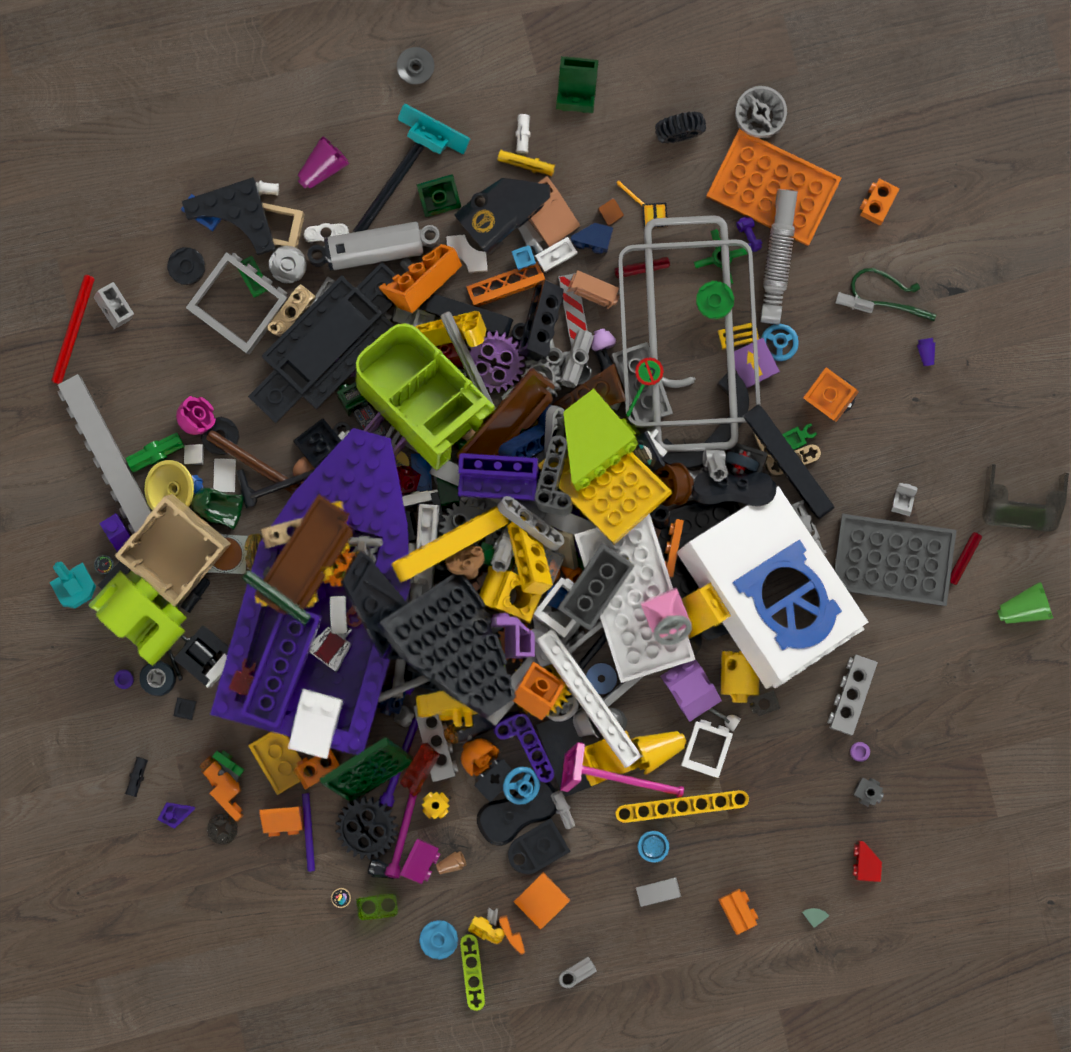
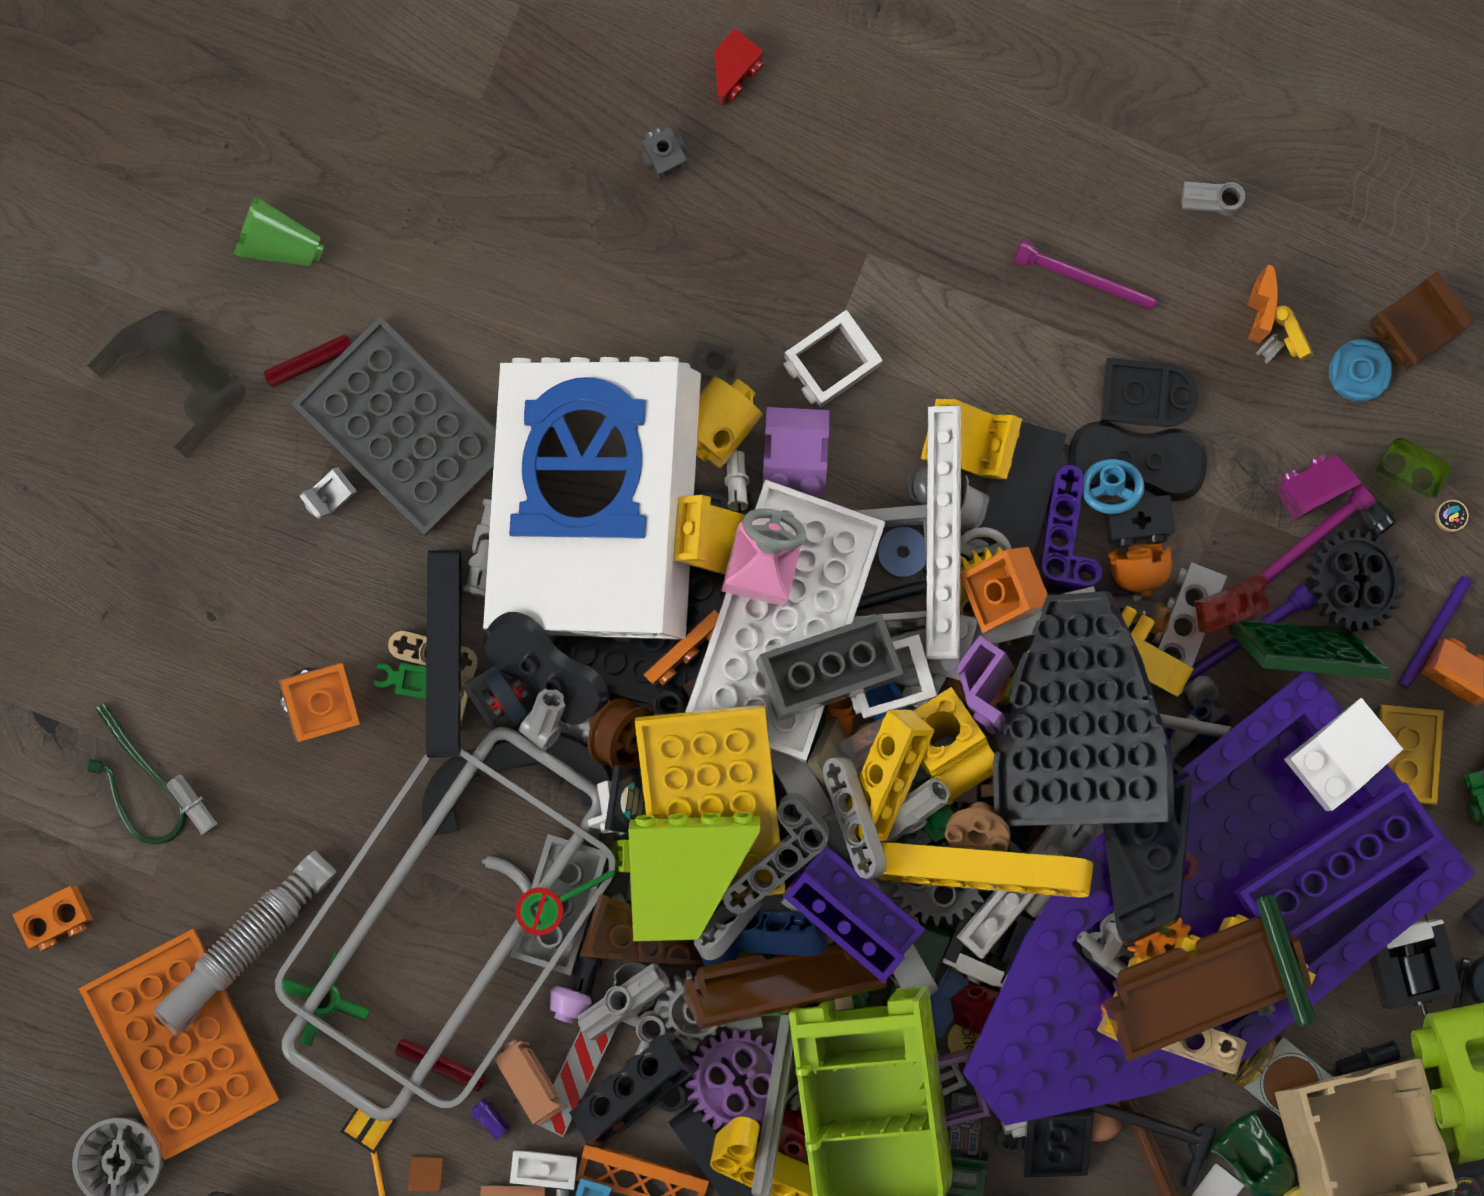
camera: 145 degrees left, 0 degrees up
(242, 680) = (1403, 884): clear red plate -> none
(316, 767) = (1372, 696): orange brick -> none
(331, 648) = (1240, 848): torso -> none
(338, 614) = (1204, 884): white sticker -> none
(426, 986) = (1421, 321): none -> reddish brown panel
(443, 805) = (1234, 551): yellow brick -> none
(451, 863) = (1274, 454): medium nougat cone -> none
(469, 972) = (1348, 299): lime beam -> none
(542, 900) = (1190, 322): orange slope -> none
(563, 809) = (1078, 418): light grey axle -> none
(573, 769) = (1029, 455): dark pink tile -> none
(594, 237) = (474, 1156): dark blue slope -> none
(599, 259) = (489, 1118): none -> dark purple pin
(647, 876) = (1029, 255): none -> magenta piece
(653, 846) = (995, 286): dark azure piece -> none
(658, 748) = (896, 404): yellow cone -> none
(658, 892) = (1030, 224): light grey slope -> none
(691, 806) = (912, 296): yellow beam -> none
(708, 652) = (737, 481): none -> white axle
(715, 300) = (377, 943): green tile -> none
(730, 721) = (773, 373): white hinge -> none
(737, 328) = (404, 885): yellow tile -> none
(738, 911) = (945, 125): orange brick -> none
(745, 224) = (257, 1020): dark purple bar -> none
(745, 363) = (400, 830): medium lavender tile -> none
(792, 335) = (308, 822): dark azure piece -> none
(815, 916) = (849, 49): sand green tile -> none
(859, 751) = (634, 213): medium lavender tile -> none
(867, 668) = (623, 257): light grey brick -> none
(927, 351) = (146, 668): dark purple cone -> none

